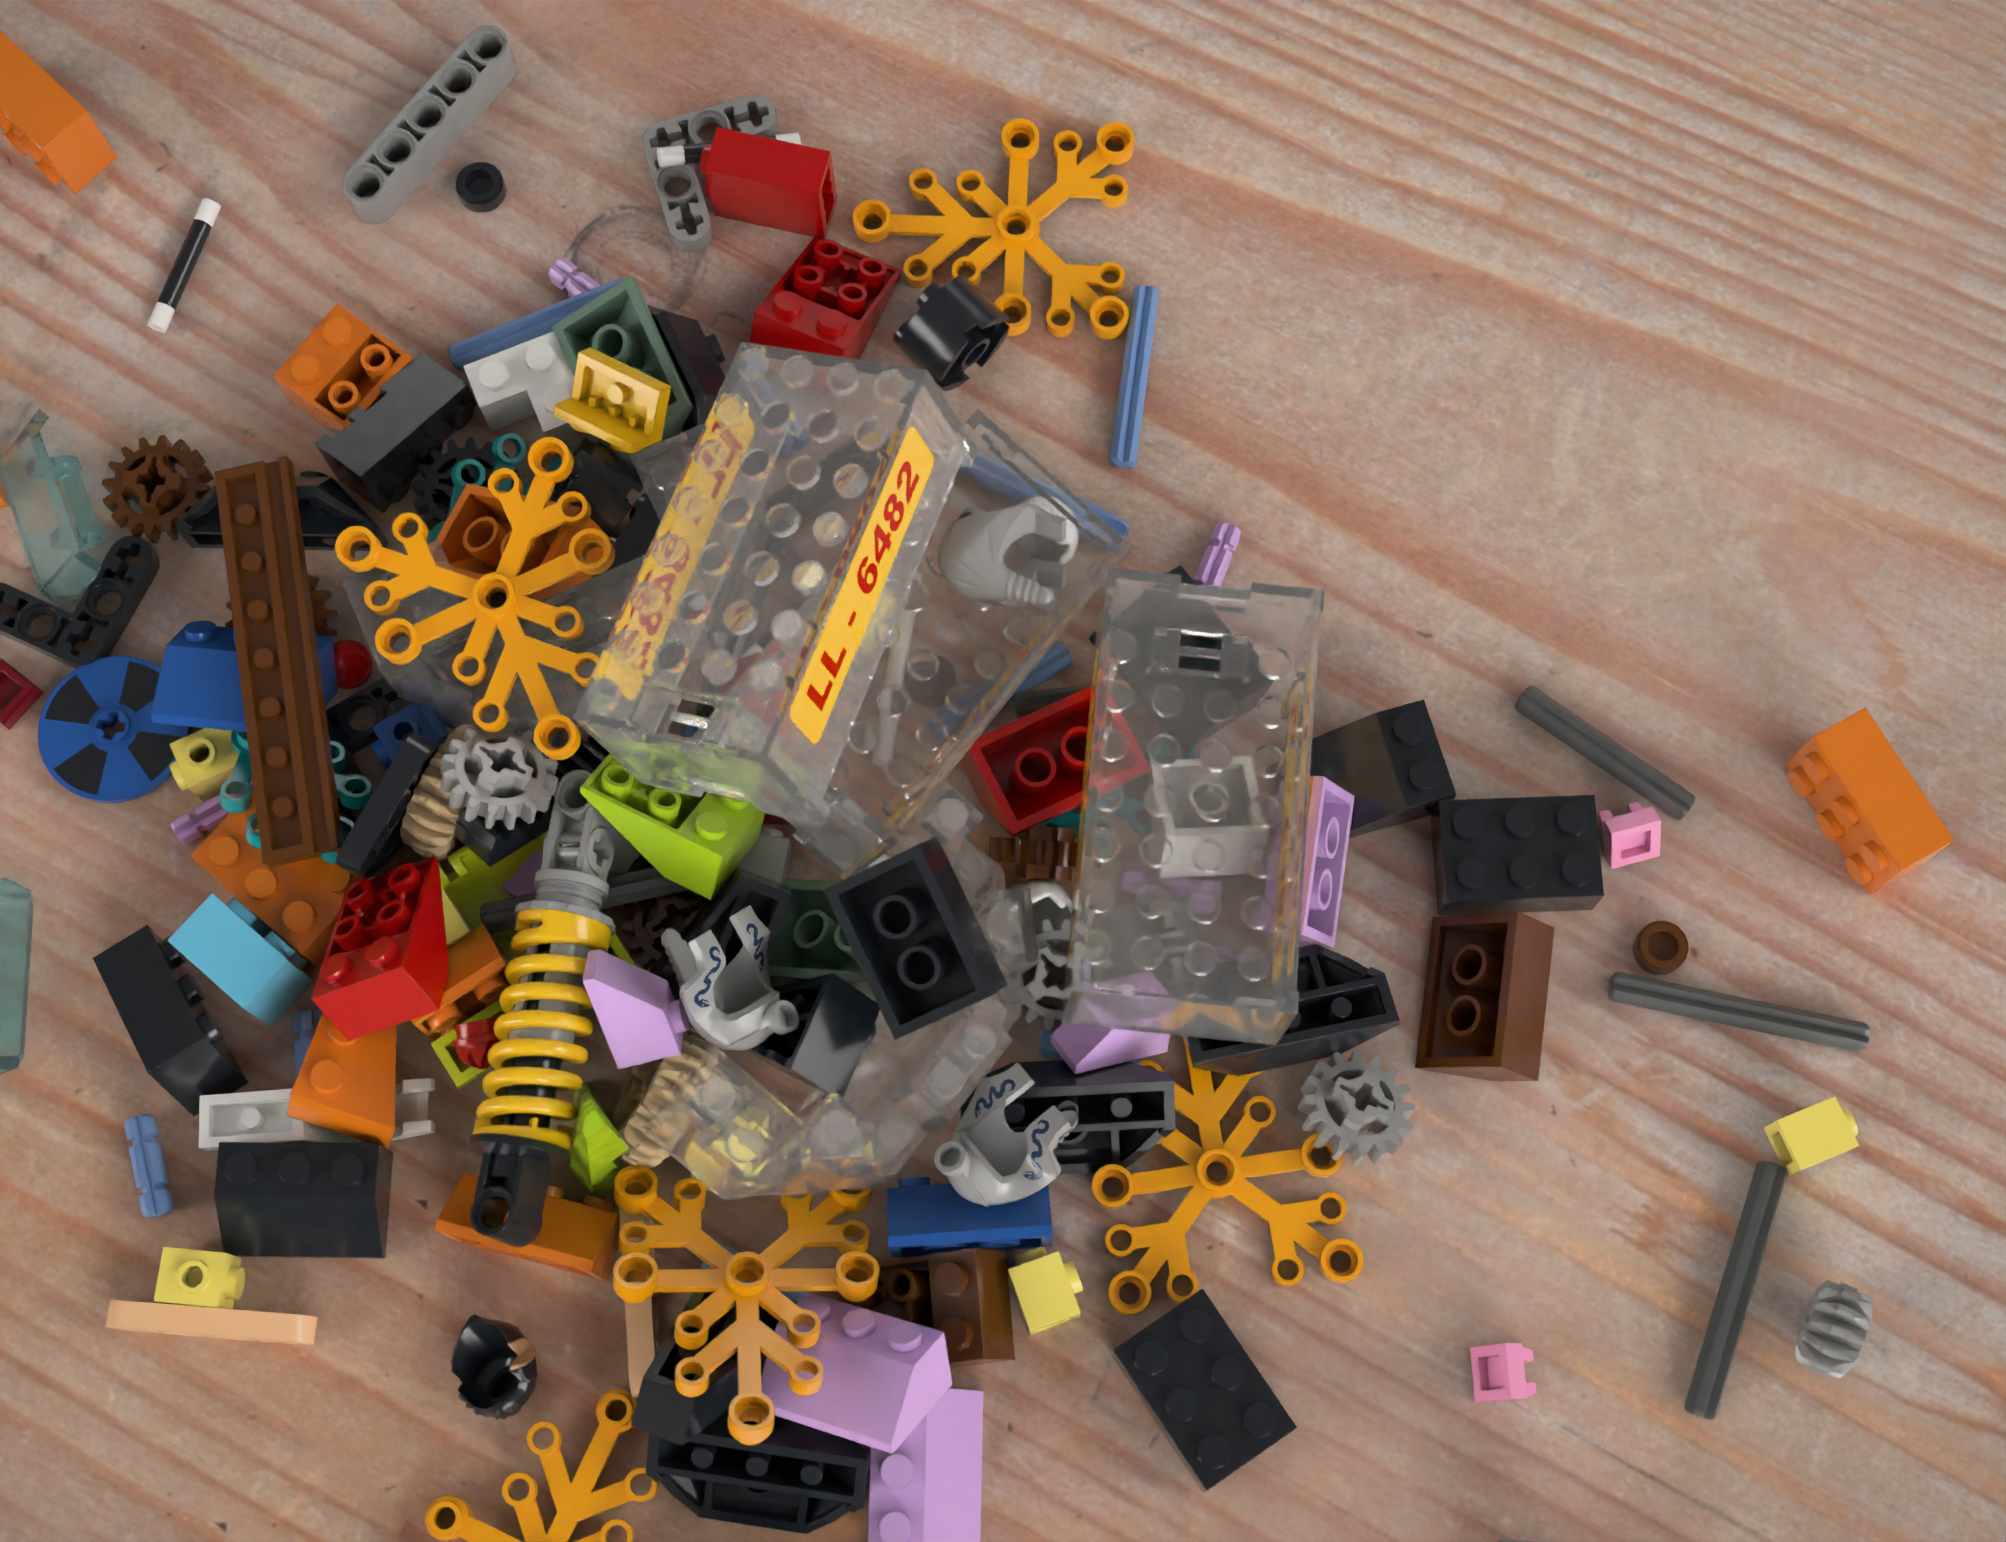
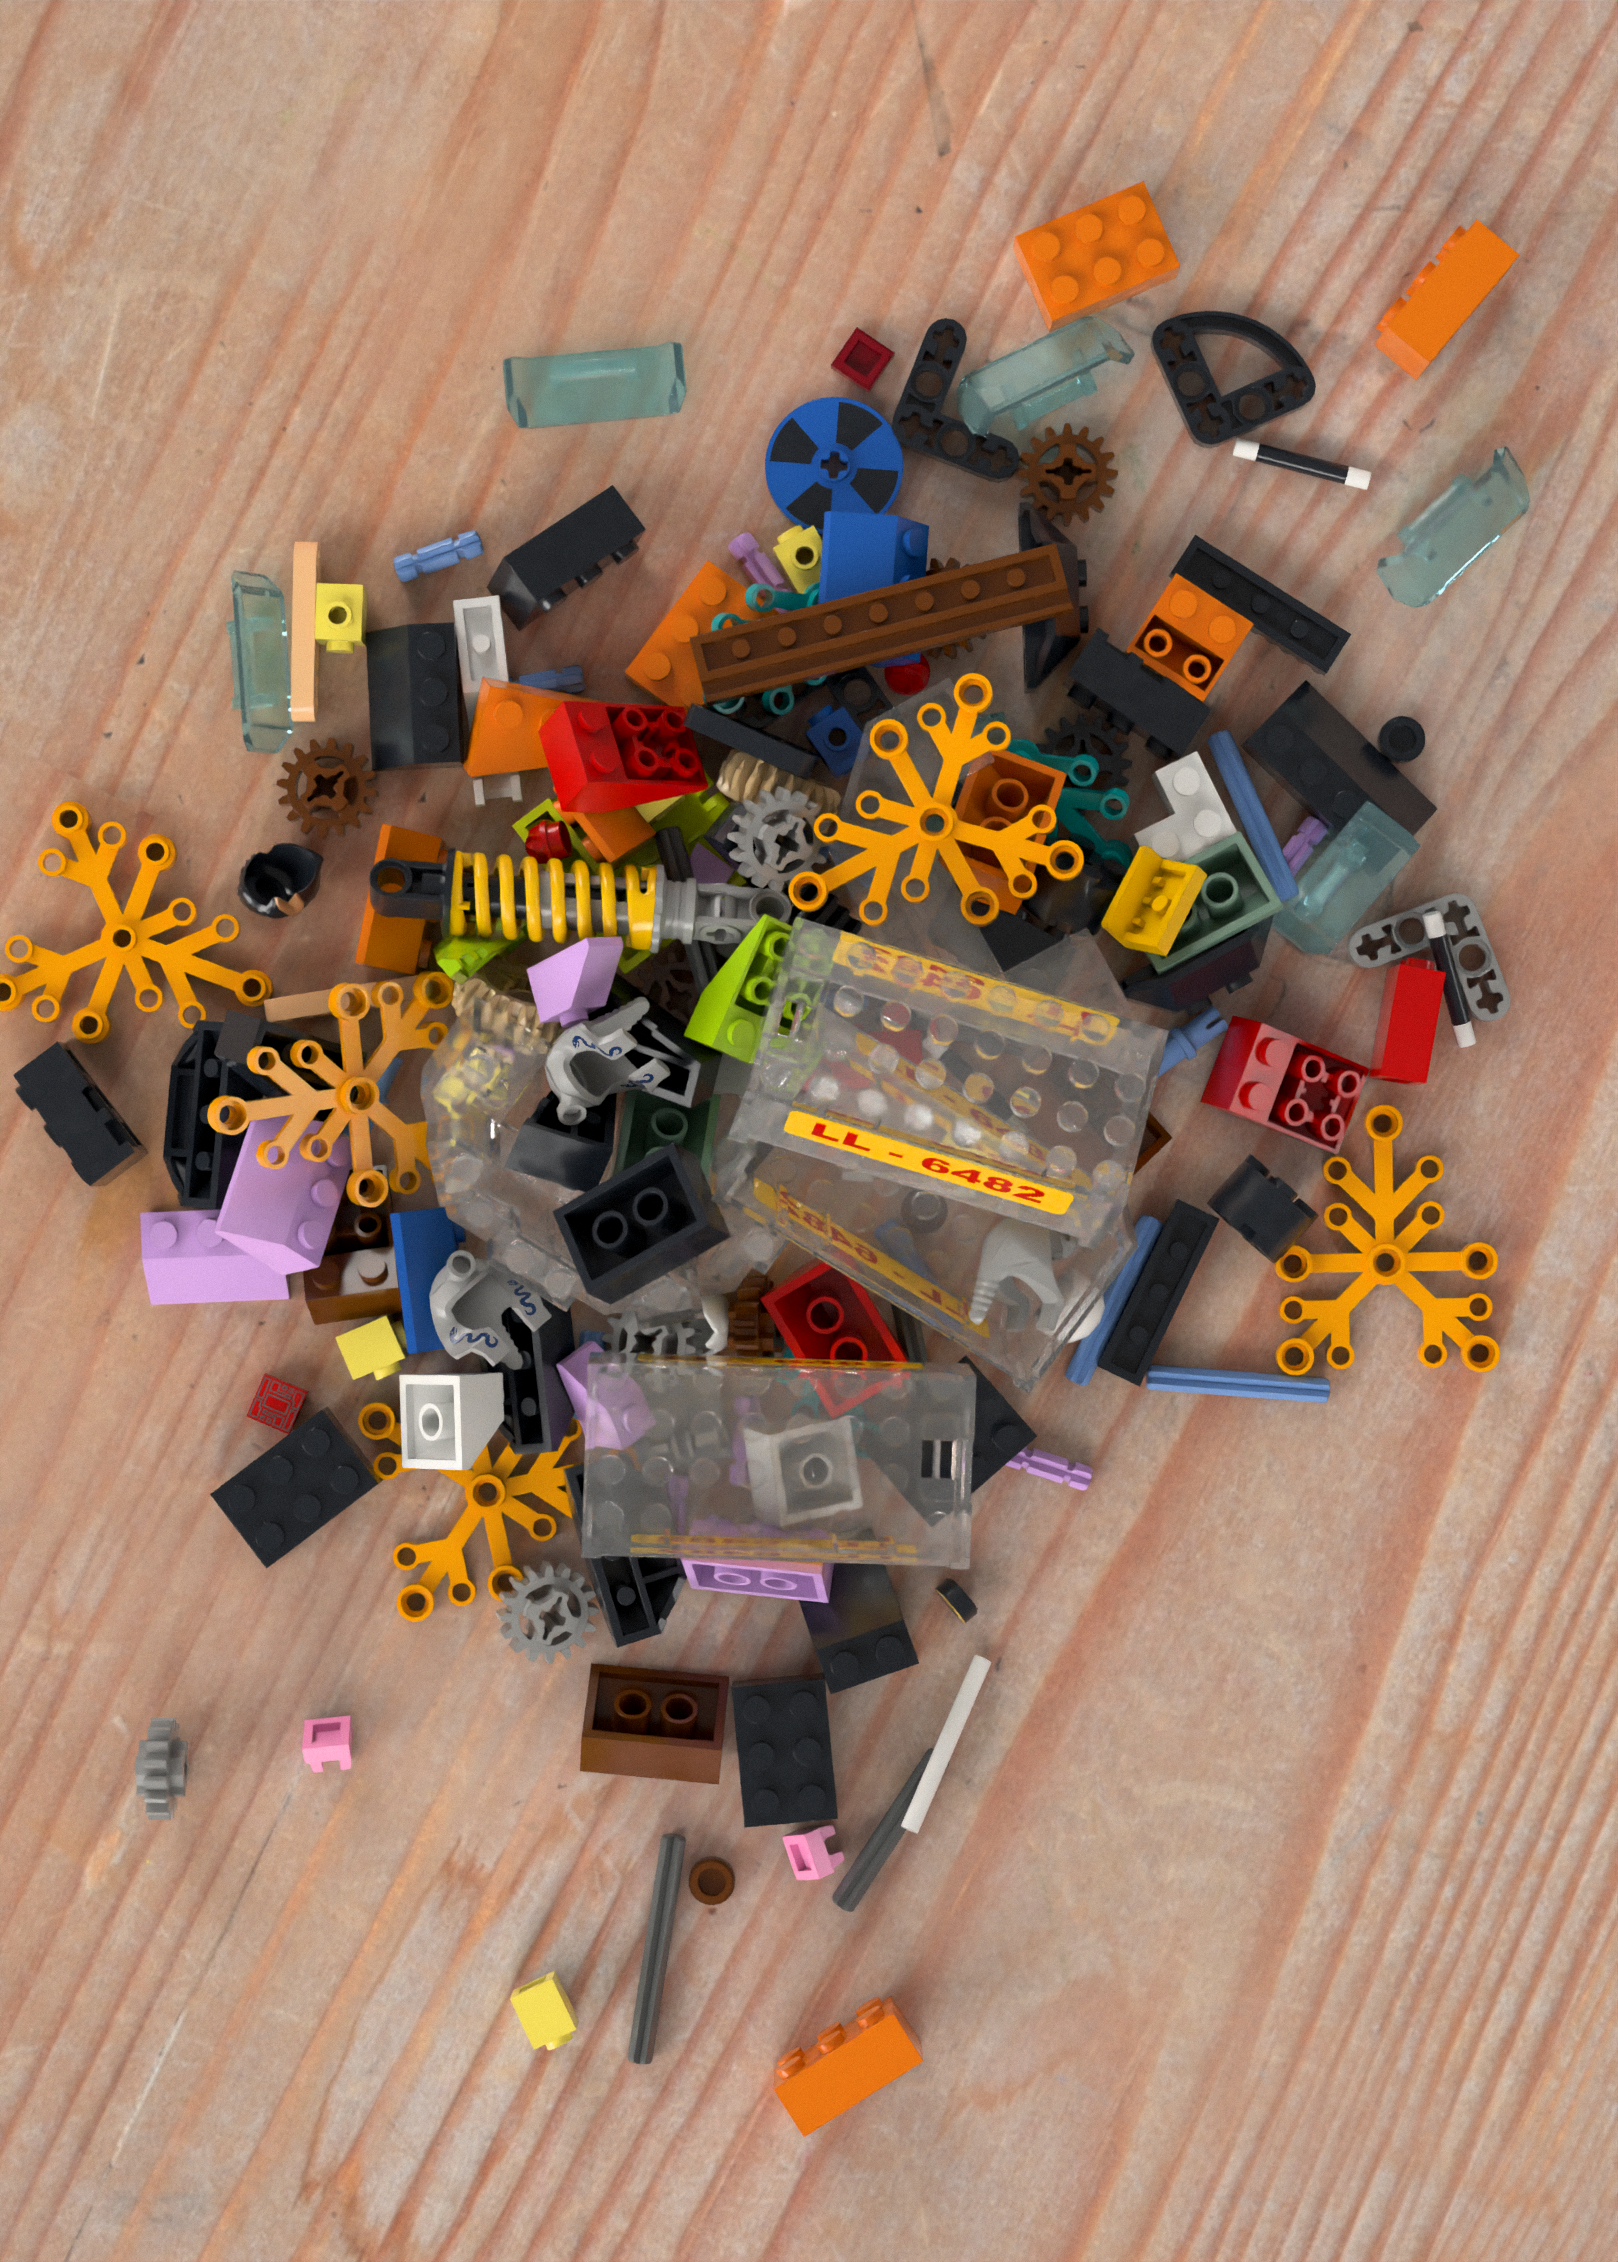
camera: 85 degrees right, 15 degrees up
(113, 336) = (1227, 406): none -> black beam
(235, 954) = (618, 619): medium azure brick -> none
(241, 1378) = (260, 662): none -> clear light blue piece
(297, 139) = (1455, 531): none -> clear light blue piece
(344, 280) = (1274, 612): none -> black gear
(374, 1319) = (309, 801): none -> reddish brown gear
(429, 145) = (1483, 686): light grey beam -> none
(514, 245) = (1332, 765): none -> black slope
(611, 226) = (1345, 880): none -> clear light blue piece
(1070, 460) = (1158, 1292): none -> black gear
(1104, 1412) = (277, 1403): none -> red tile
(1131, 1203) = (448, 1417): none -> white slope
(1355, 667) = (957, 1600): none -> black tile
(1512, 684) = (946, 1744): none -> white bar
(1735, 1290) = (412, 1944): dark grey axle -> none
(1833, 1329) = (378, 2025): light grey gear -> none

